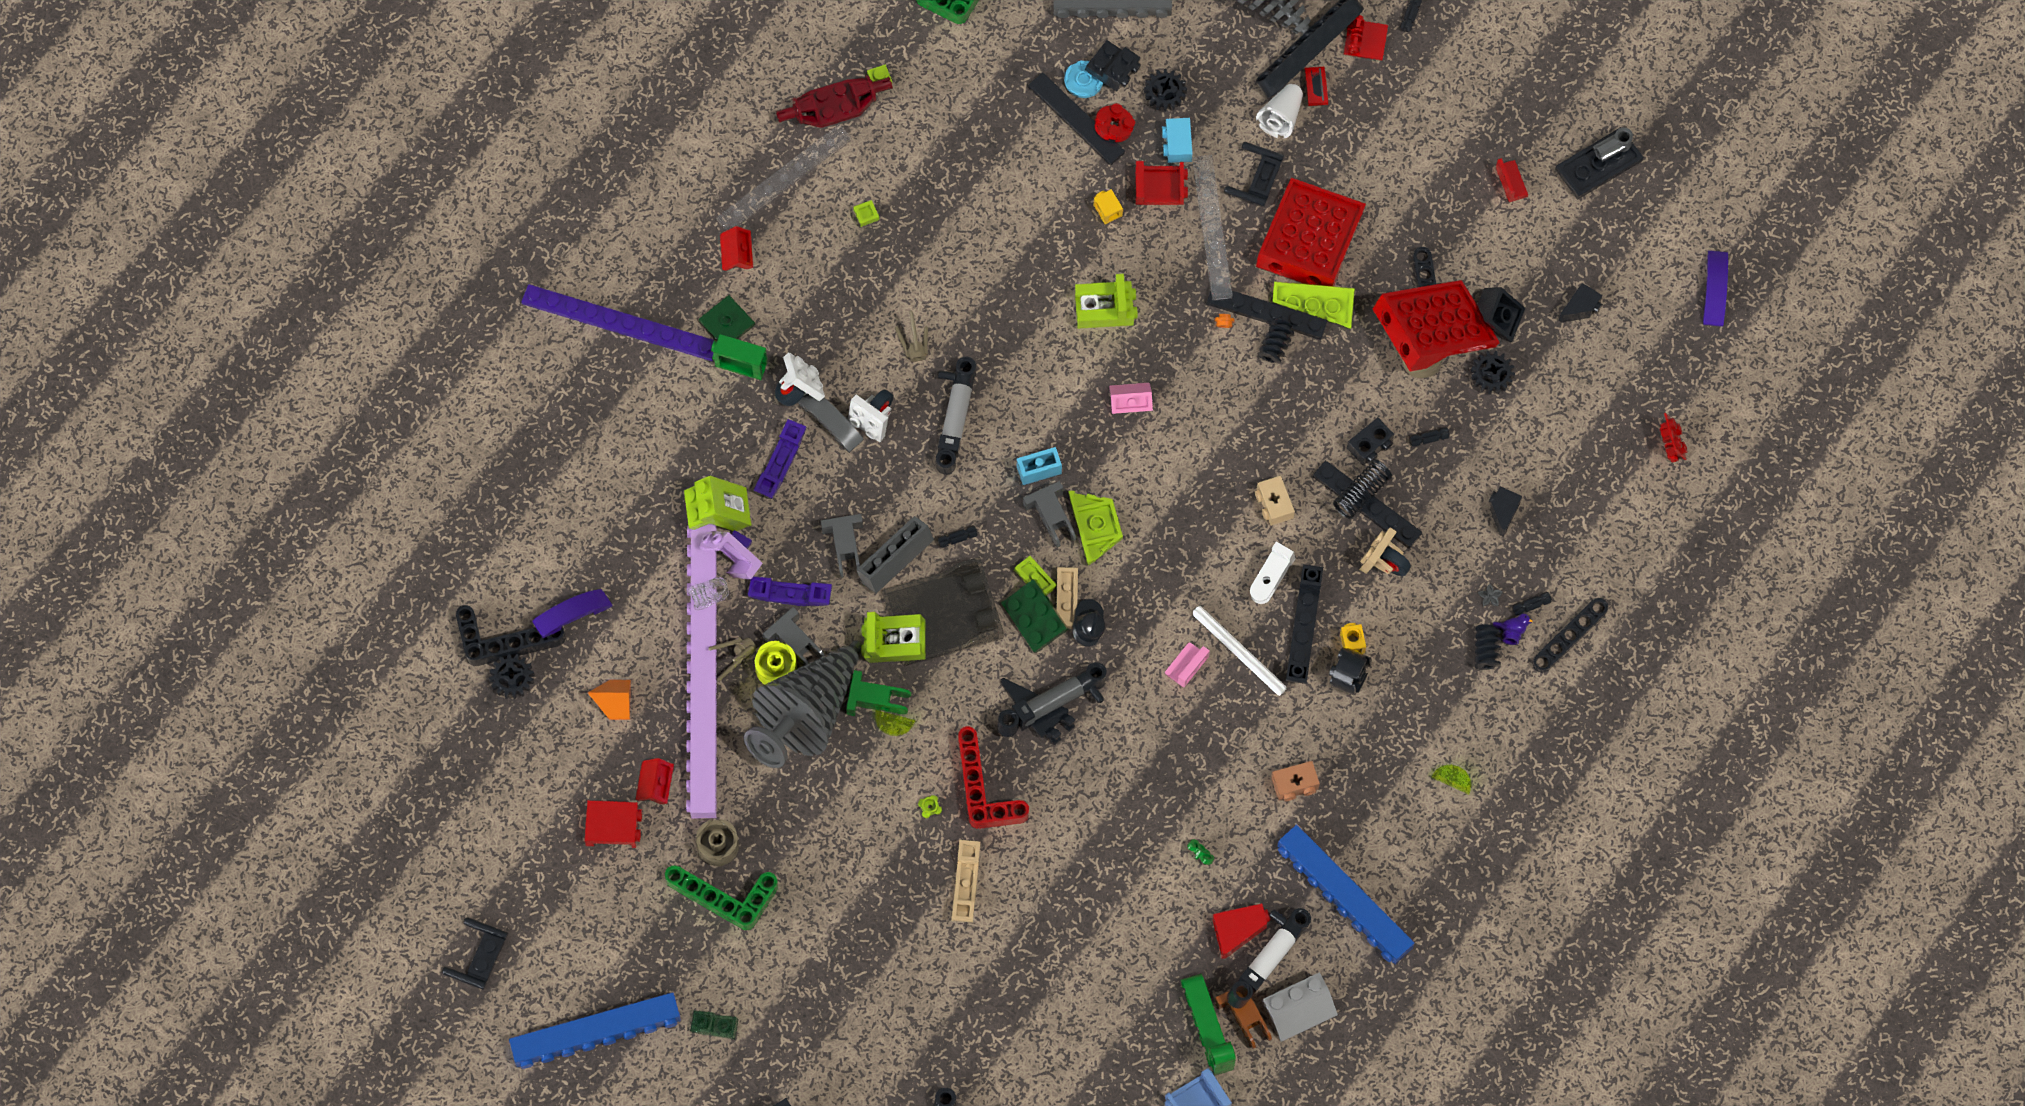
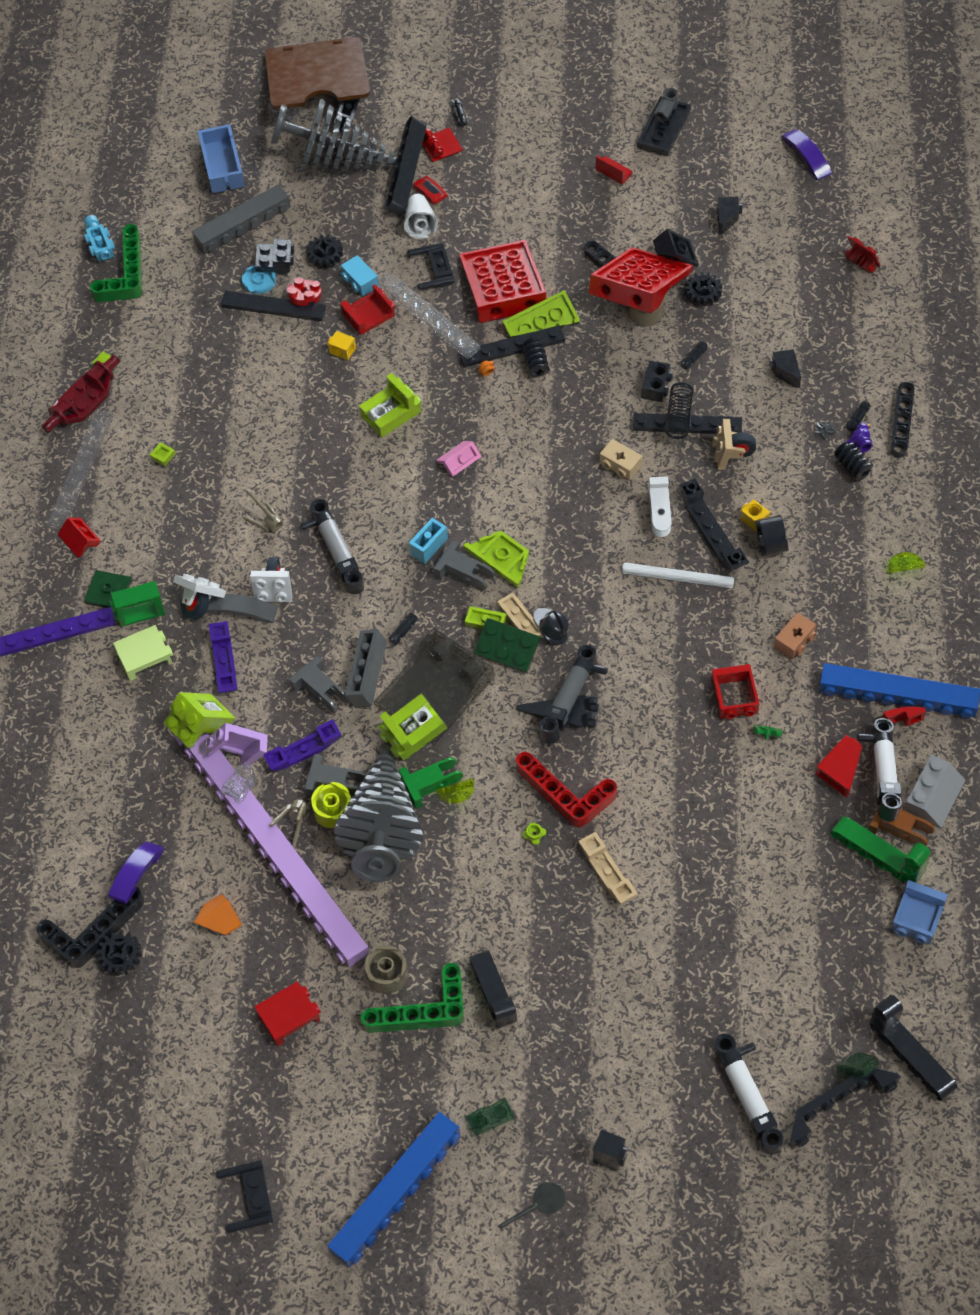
camera: 30 degrees left, 10 degrees down
(655, 781) = (298, 957): red panel -> none
(715, 405) = (142, 650): none -> yellowish green panel
(793, 919) = (494, 992): none -> black beam
(1187, 664) = (647, 608): bright pink panel -> none
(1209, 778) = (735, 674): none -> red window
(1336, 924) = (908, 715): none -> red slope

